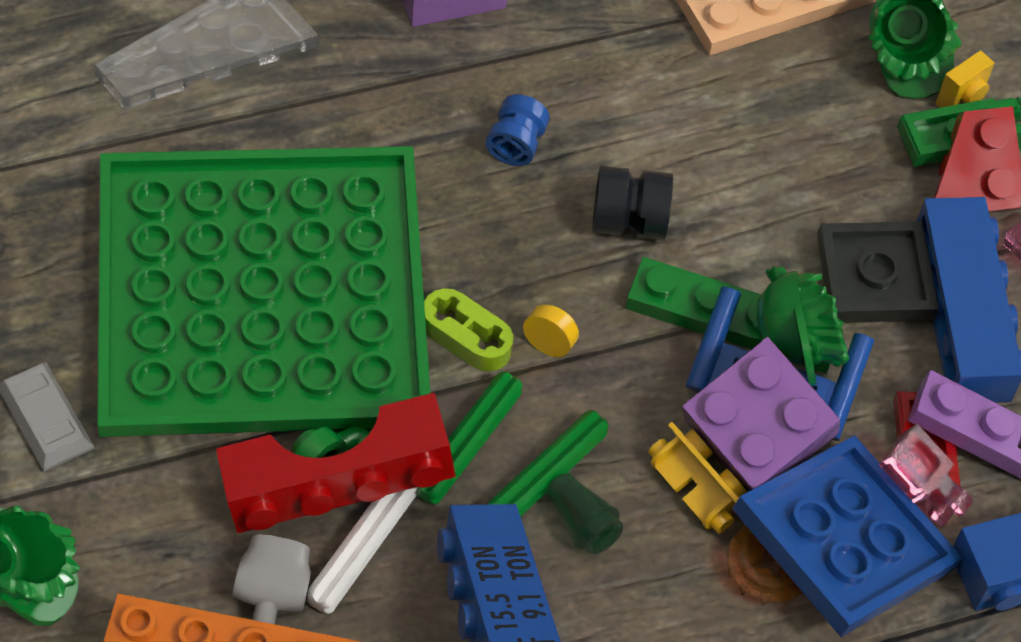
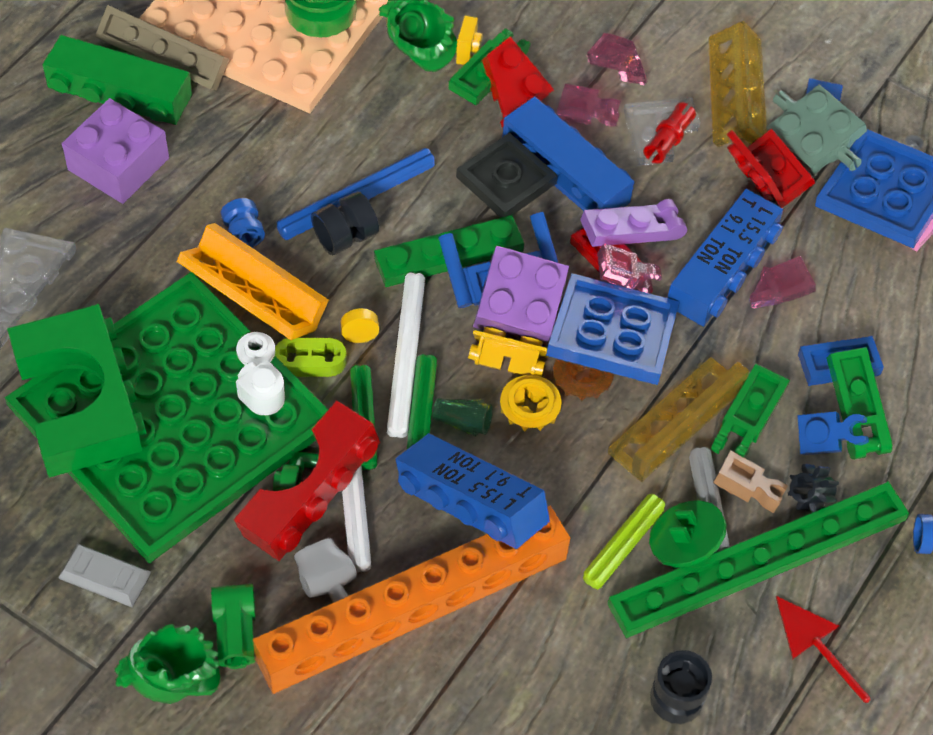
camera: 35 degrees left, 0 degrees up
(133, 554) = (234, 616): none -> green piece
(177, 252) = (105, 427): none -> green arch
(372, 324) = (261, 388): none -> white plate
(403, 290) = (255, 339): none -> white plate
(480, 206) = (256, 282): none -> light orange fence
(579, 398) = (406, 355): none -> white axle
(664, 533) = (538, 390): none -> yellow gear
(692, 179) = (369, 186): none -> blue axle
(801, 320) = (501, 224): green hair -> none

